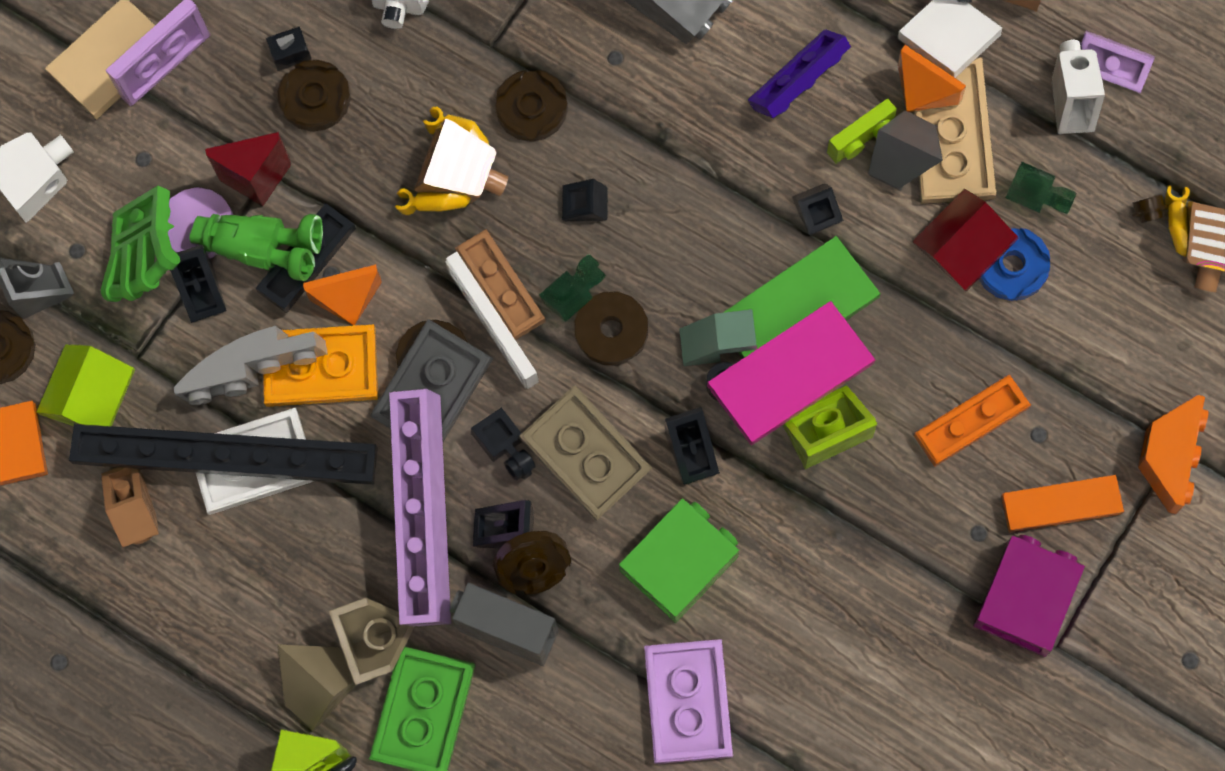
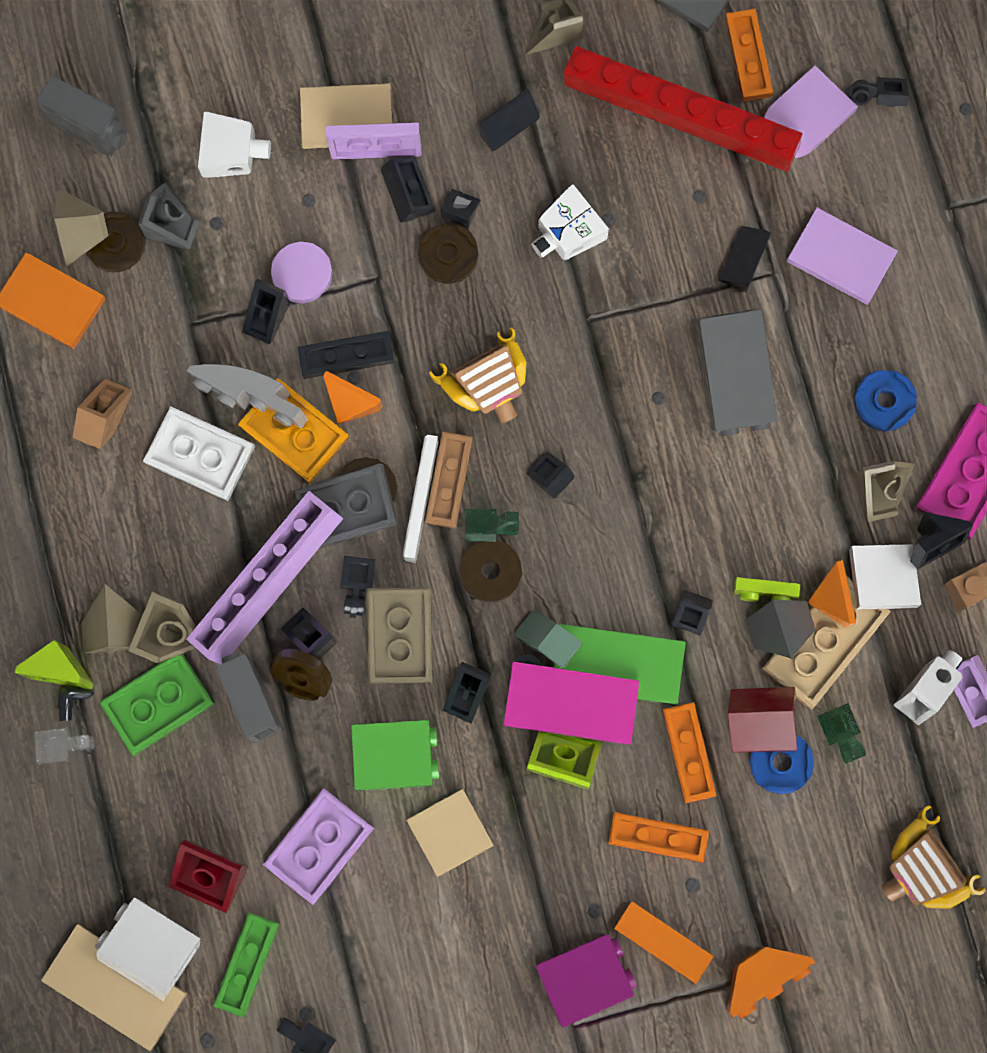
camera: 40 degrees right, 5 degrees up
(85, 387) = (141, 318): lime slope -> none
(137, 236) = (250, 257): bright green plate -> none
(223, 454) = (183, 435): black plate -> none
(224, 73) = (407, 188): none -> black slope
(251, 165) = (364, 267): dark red slope -> none
(255, 241) = (324, 316): bright green piece -> none
(531, 105) = (576, 381): dark brown tile -> none
(792, 582) = (450, 833): none -> tan tile
(799, 73) = (762, 515): dark purple plate -> none
(929, 326) = (689, 753): none -> orange tile
(1149, 208) = (902, 808): dark brown plate -> none

